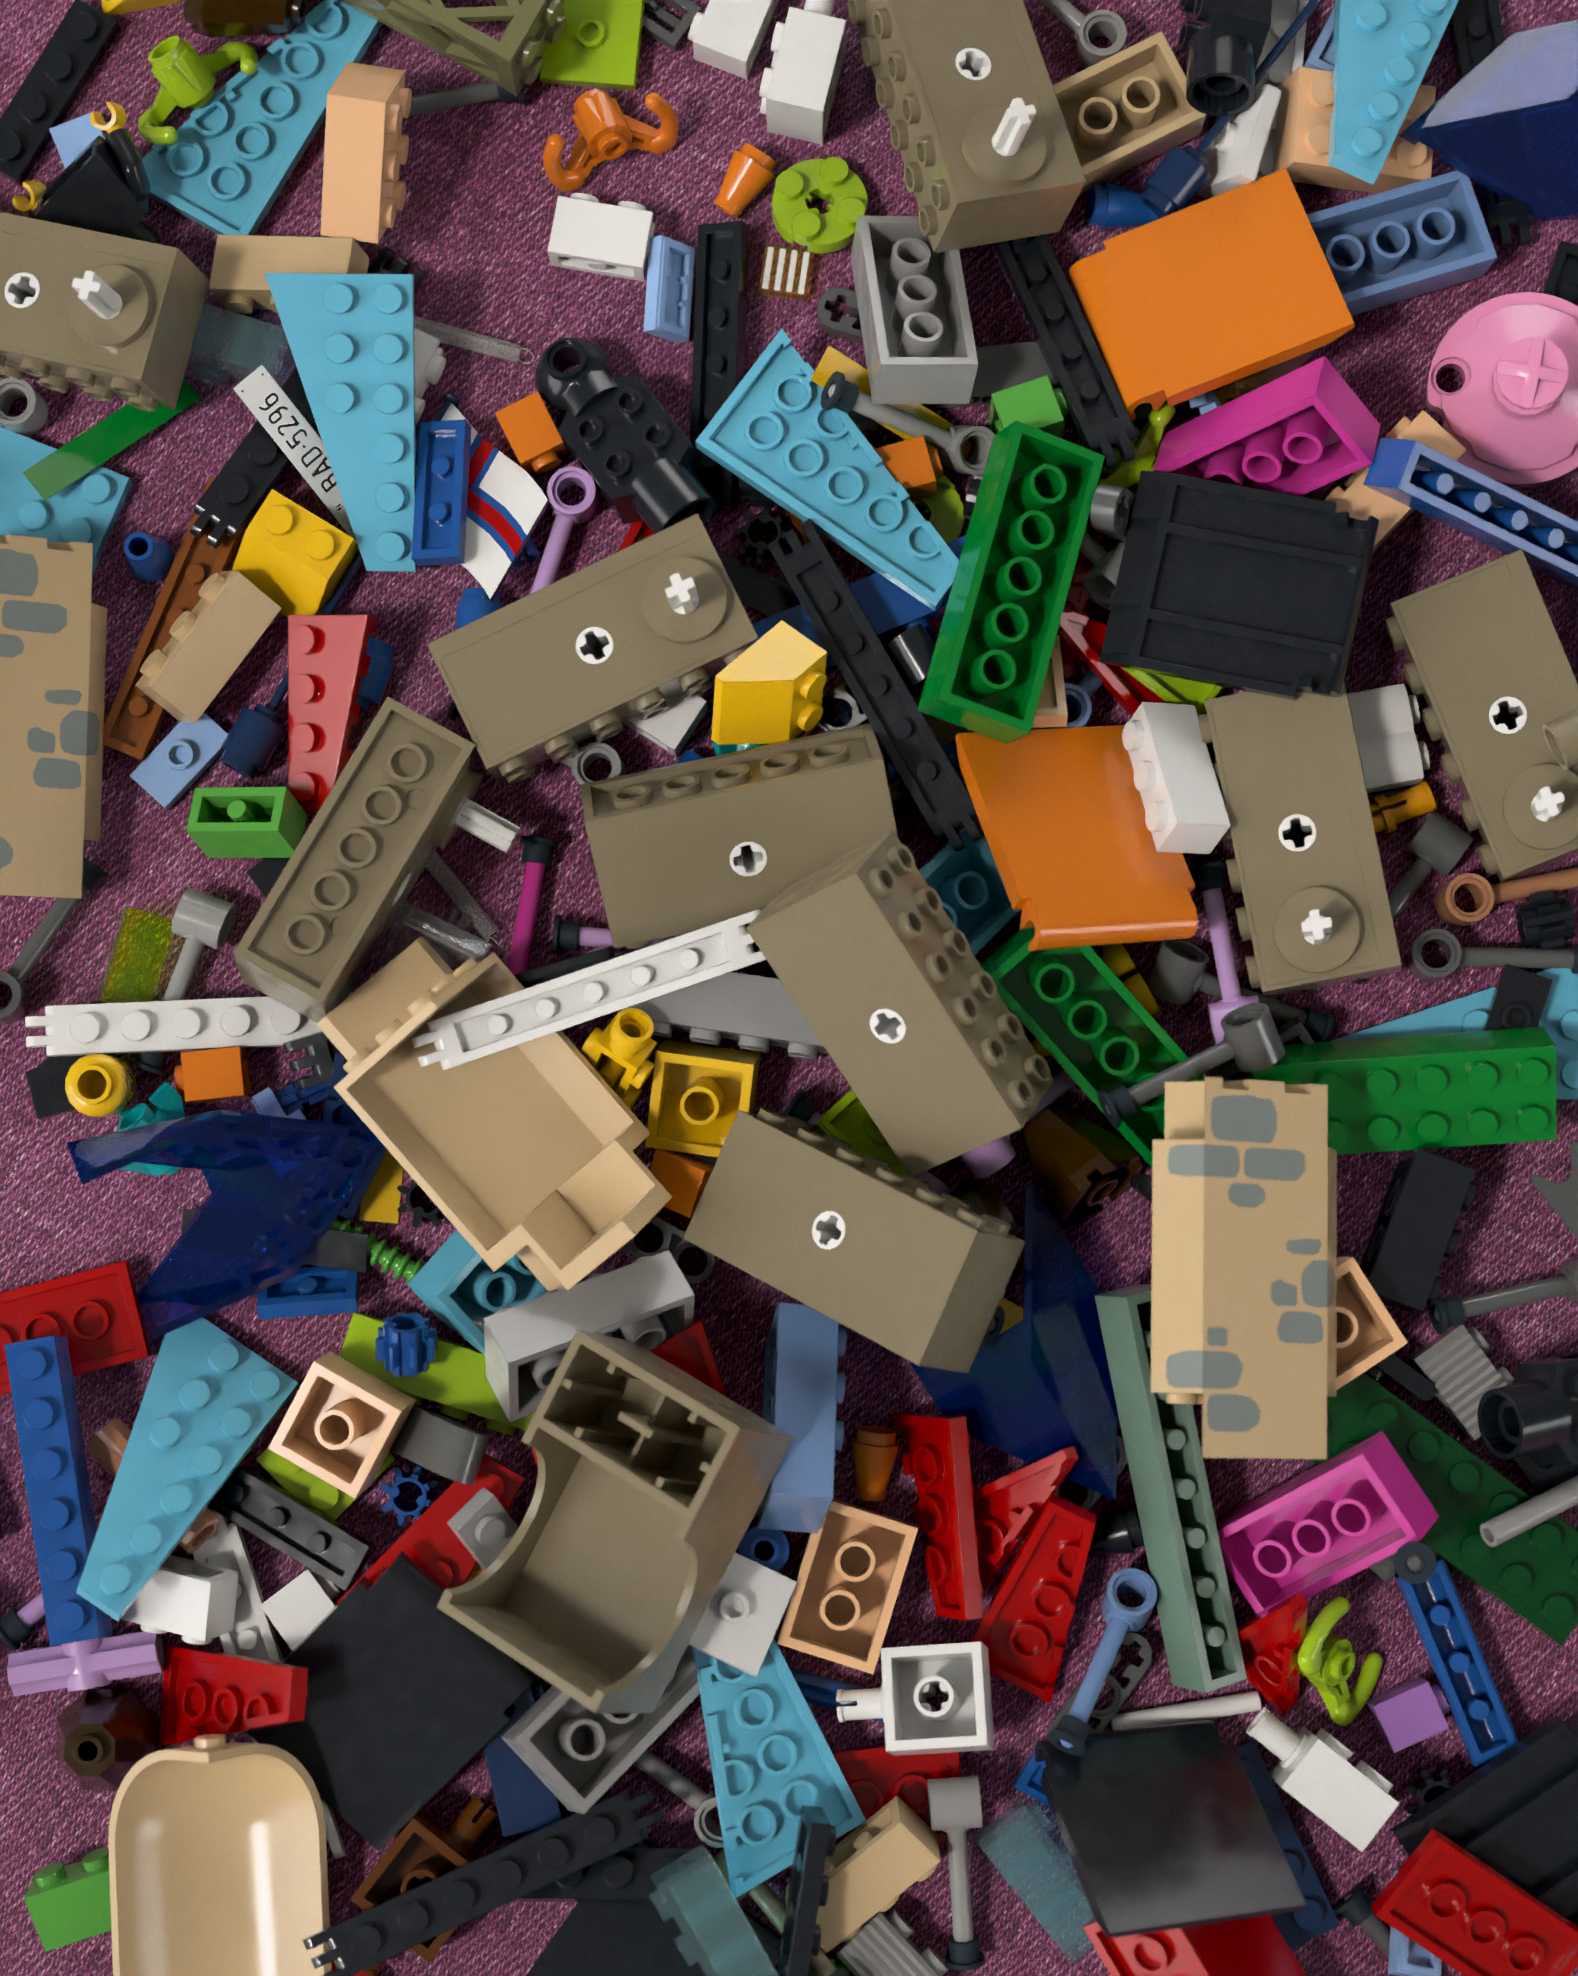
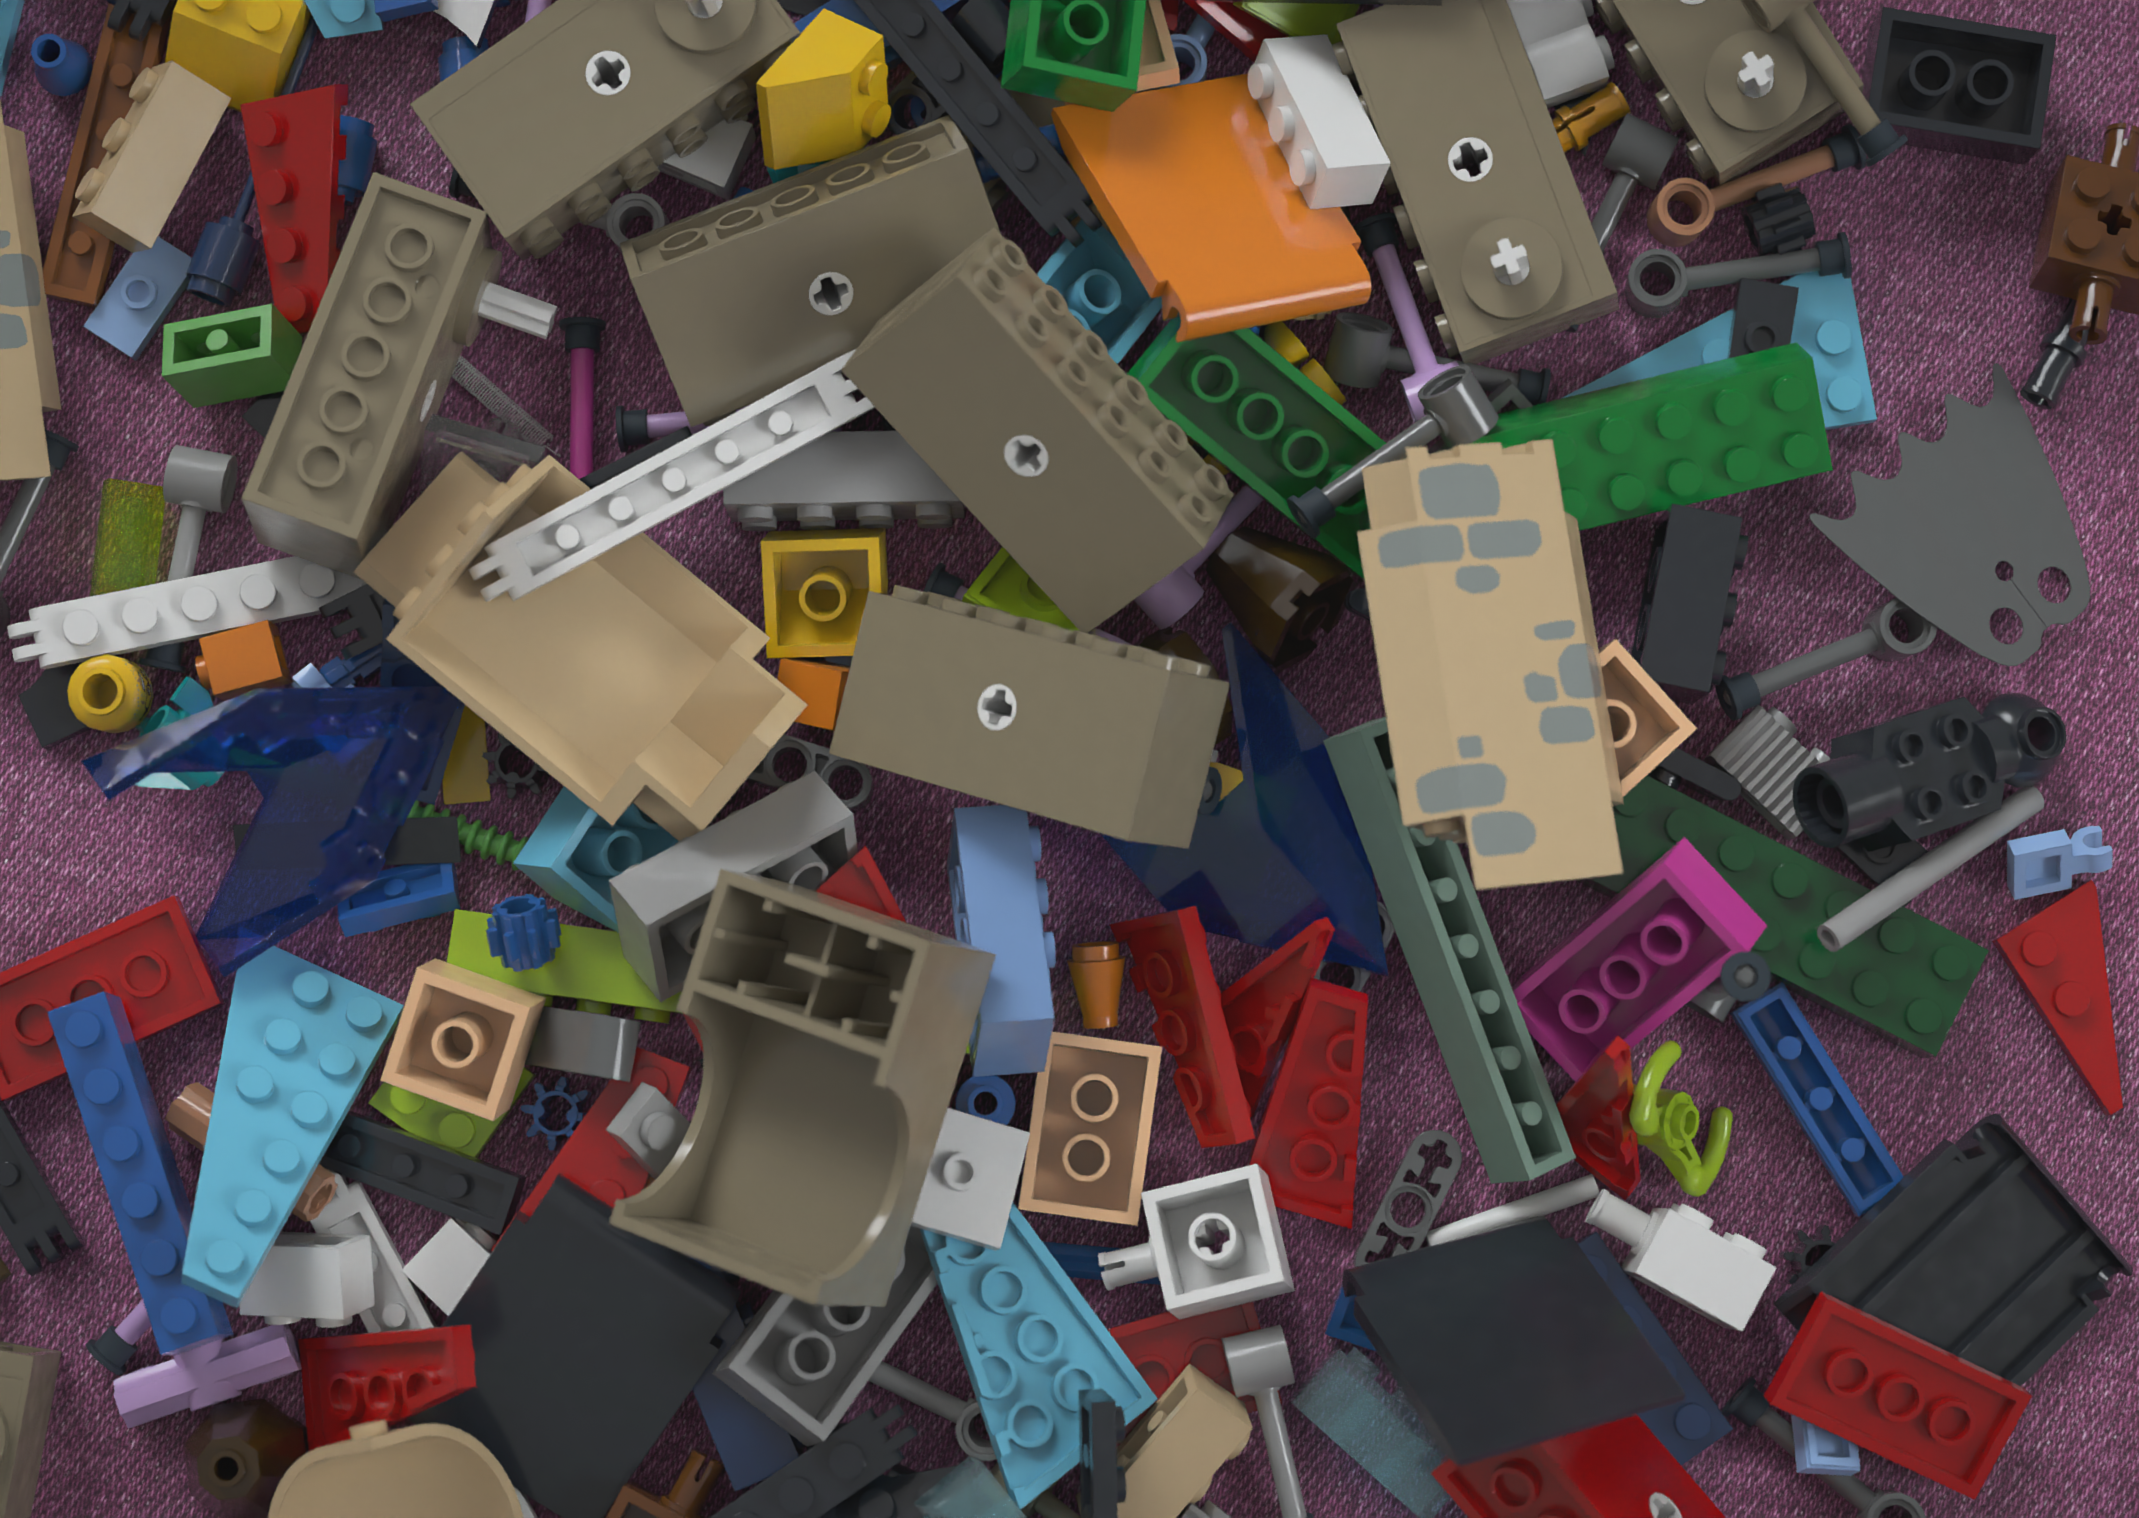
camera: 15 degrees left, 0 degrees up
(623, 1053) = (722, 548): yellow brick -> none
(1117, 1532) = (1395, 1017): black cone -> none
(1120, 1619) = (1416, 1116): medium blue piece -> none
(1409, 1713) = (1773, 1168): medium lavender brick -> none

